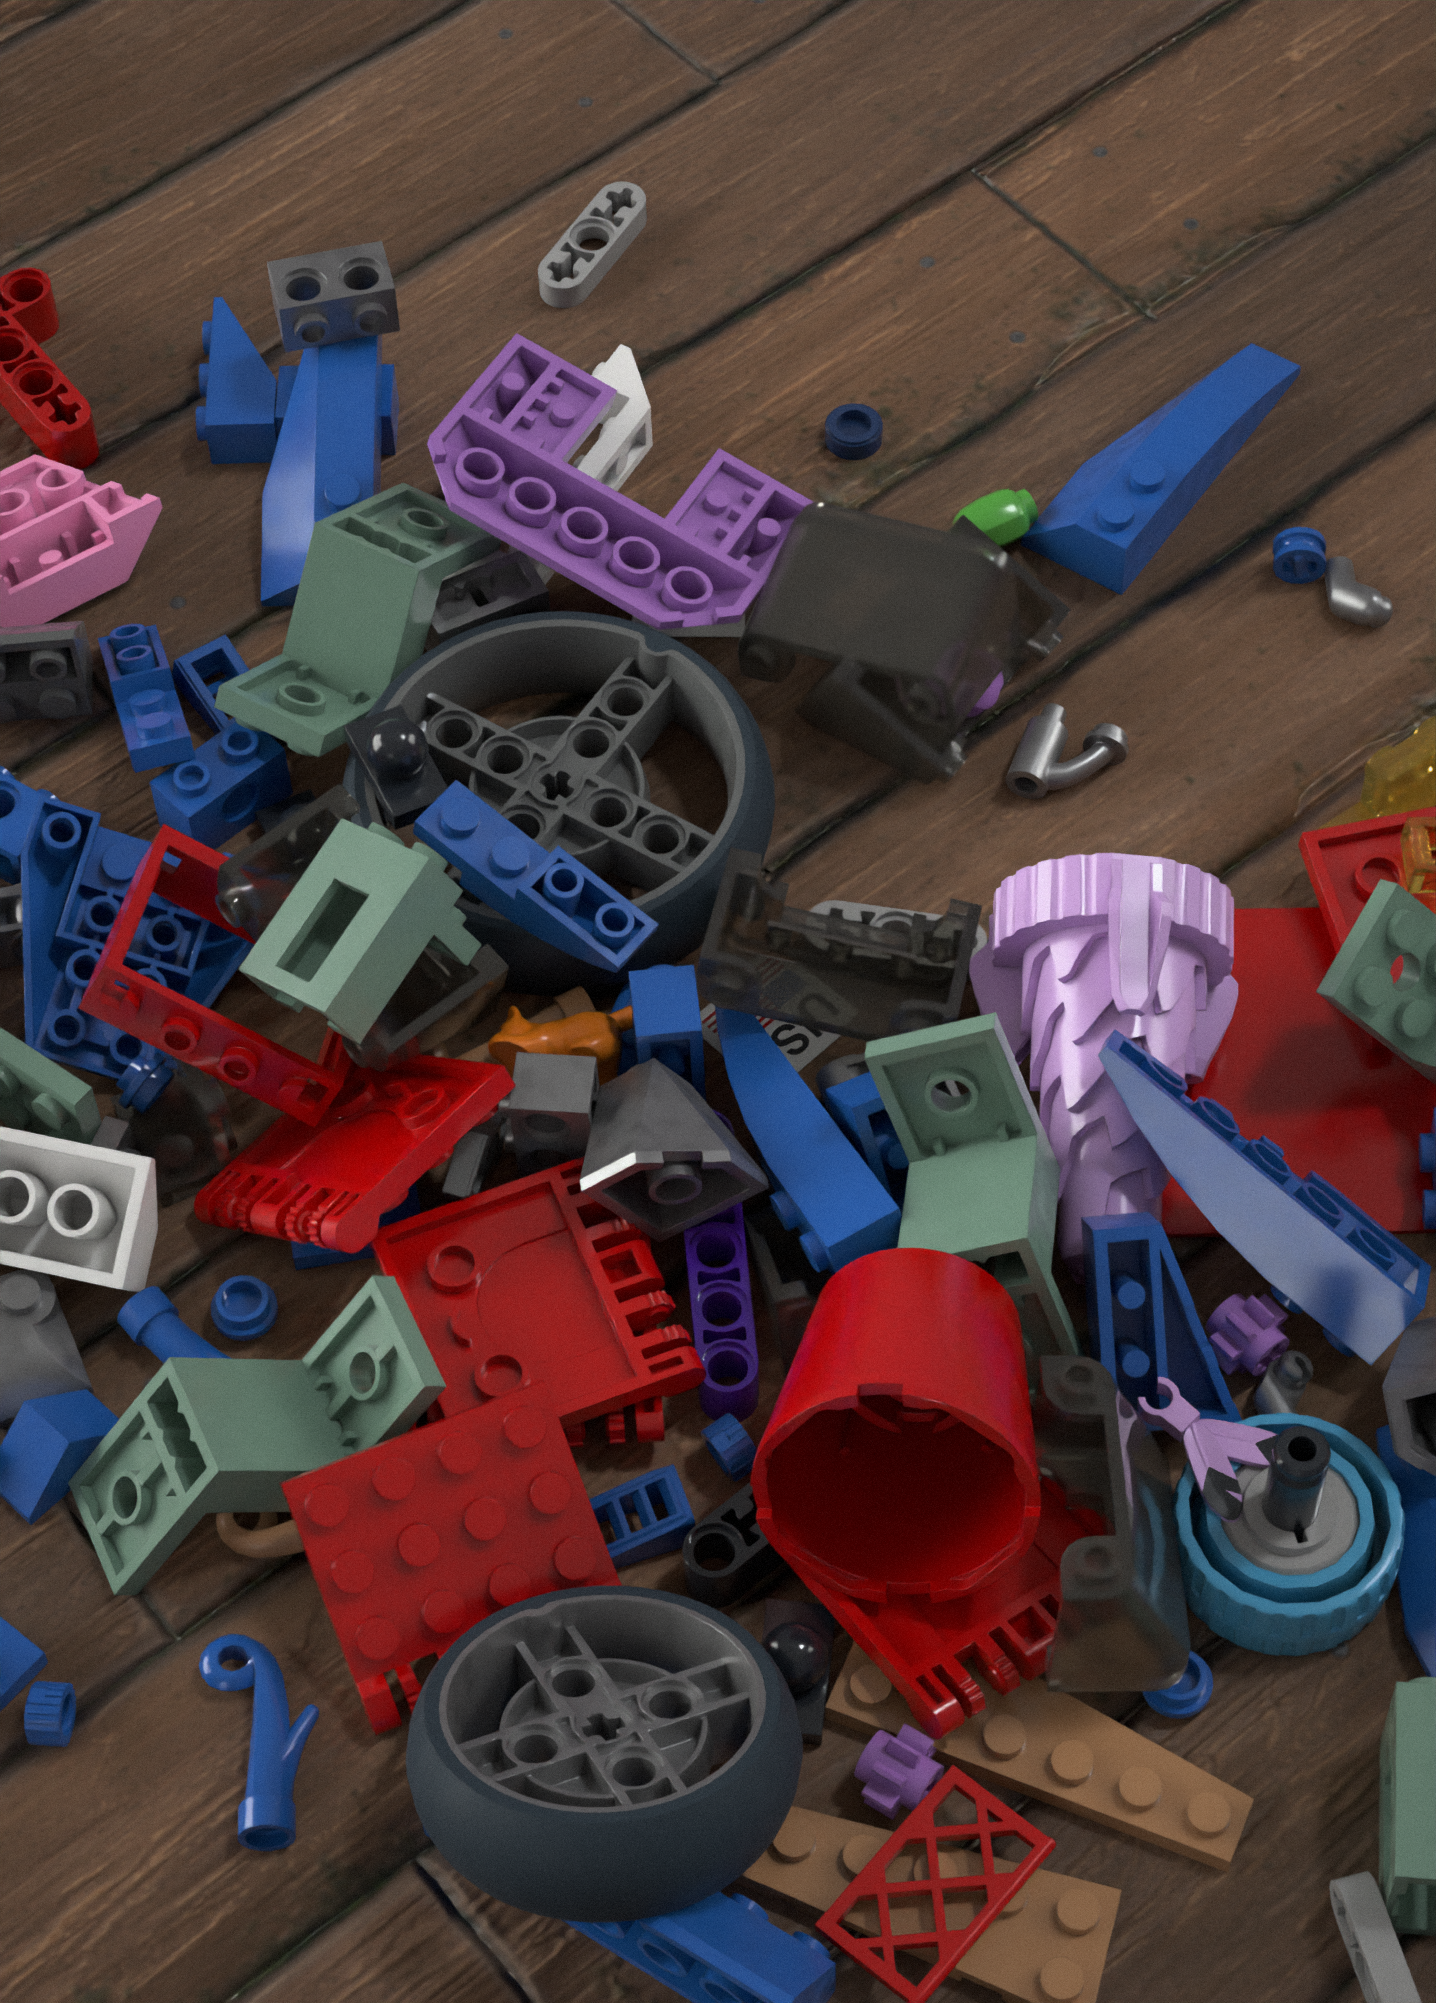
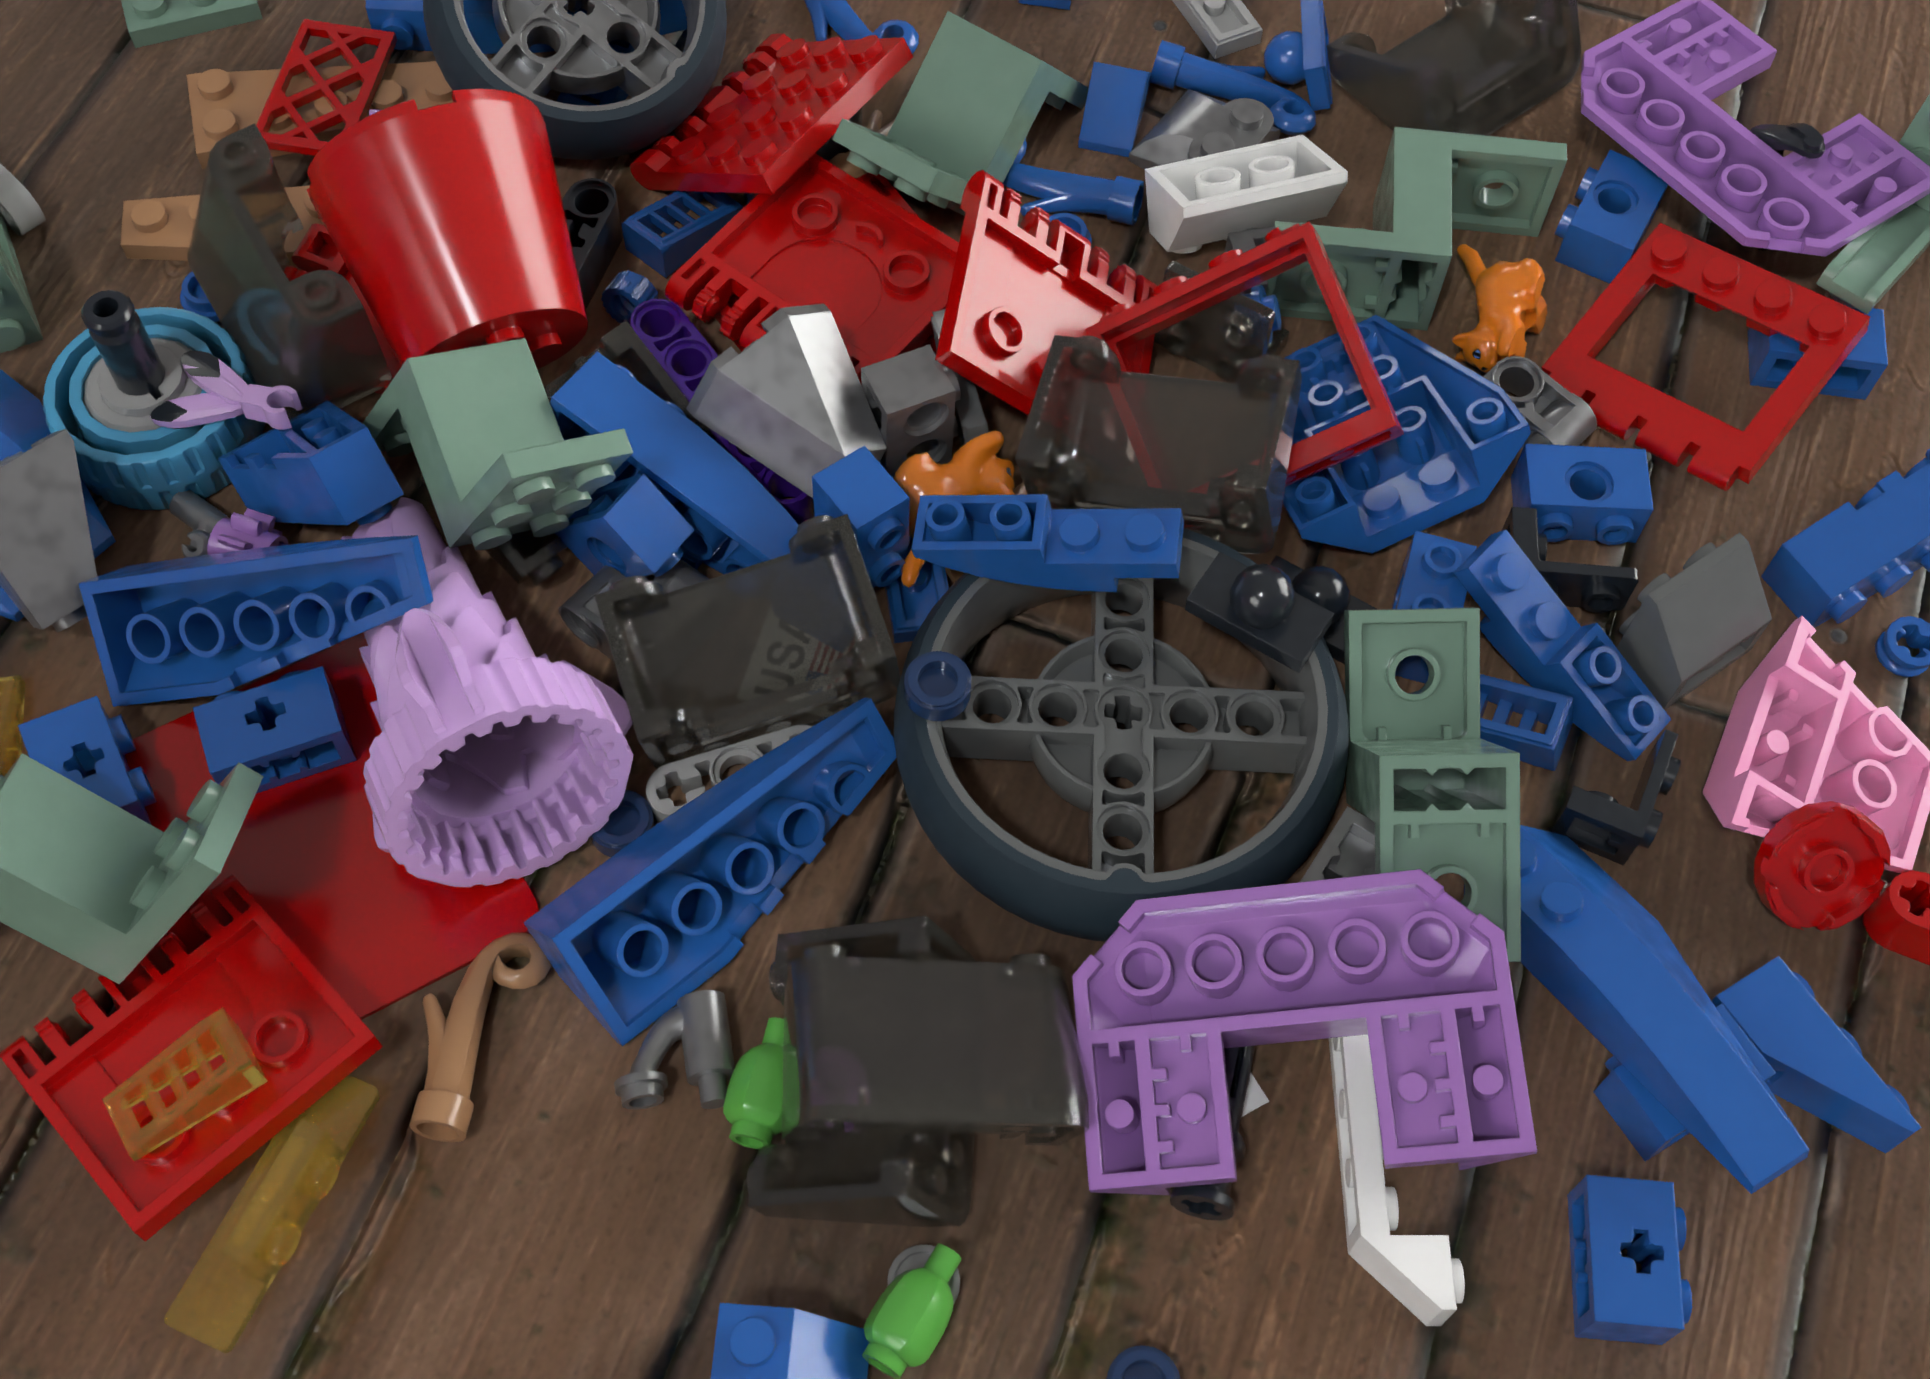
camera: 145 degrees right, 5 degrees up
(104, 772) = (1577, 585): none -> black bracket
(108, 466) = (1821, 866): none -> red tile
(203, 572) = (1613, 830): none -> black bracket
(333, 296) = (1772, 1098): flat silver brick -> none
(358, 927) = (1135, 409): sand green brick -> none
(471, 335) = (1606, 1290): none -> blue brick
(706, 832) = (937, 686): none -> dark blue tile
(961, 863) = (694, 884): none -> blue wedge
(1013, 698) = (756, 1091): none -> bright green plant
(1239, 841) = (453, 1043): none -> medium nougat plant
(1310, 1126) = (276, 729): none -> blue brick

